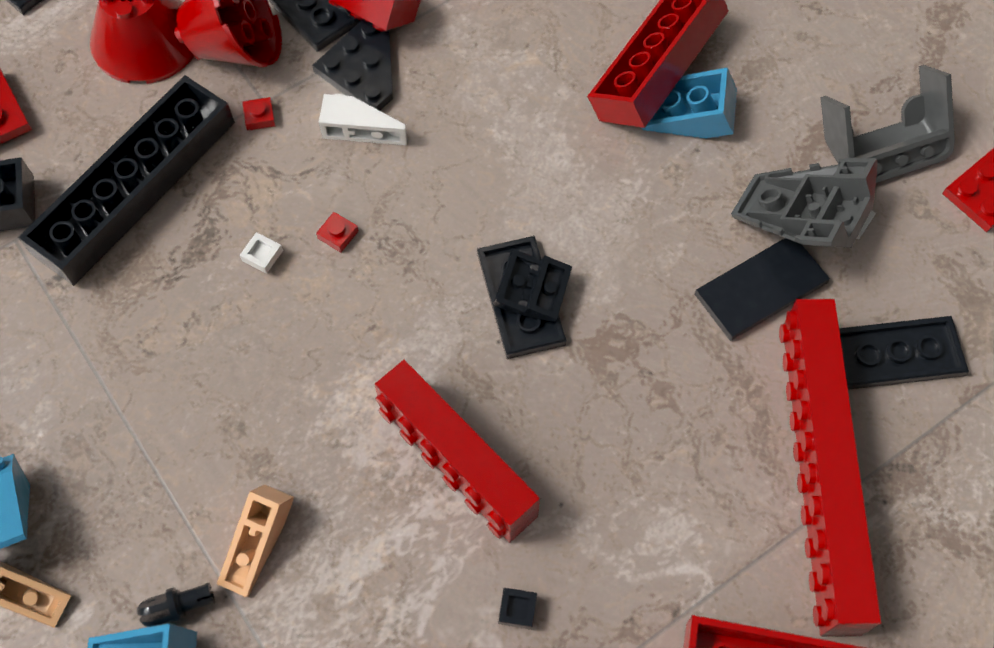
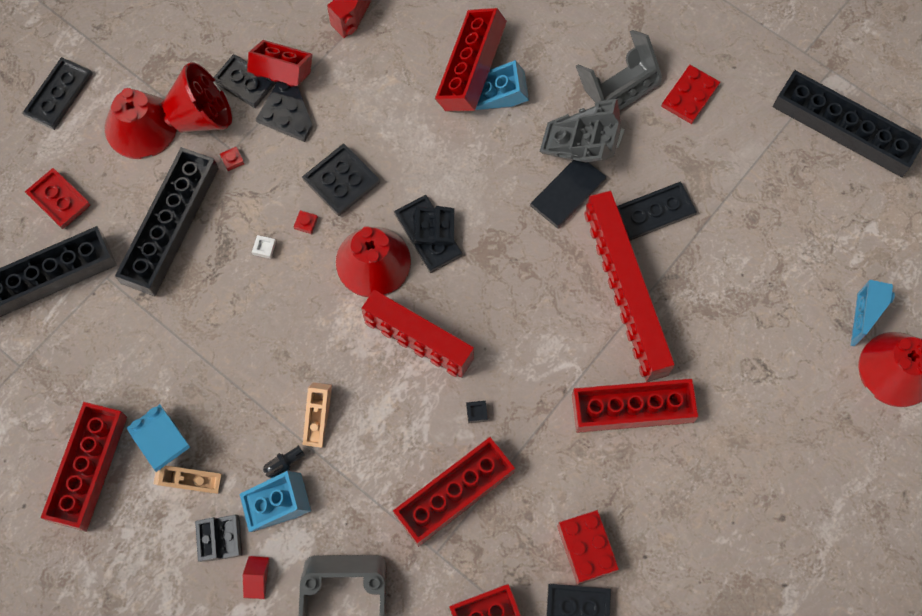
camera: 15 degrees left, 5 degrees up
(353, 120) = (294, 149): white slope -> none
(410, 182) = (341, 179): none -> black plate
(422, 317) = (373, 261): none -> red cone

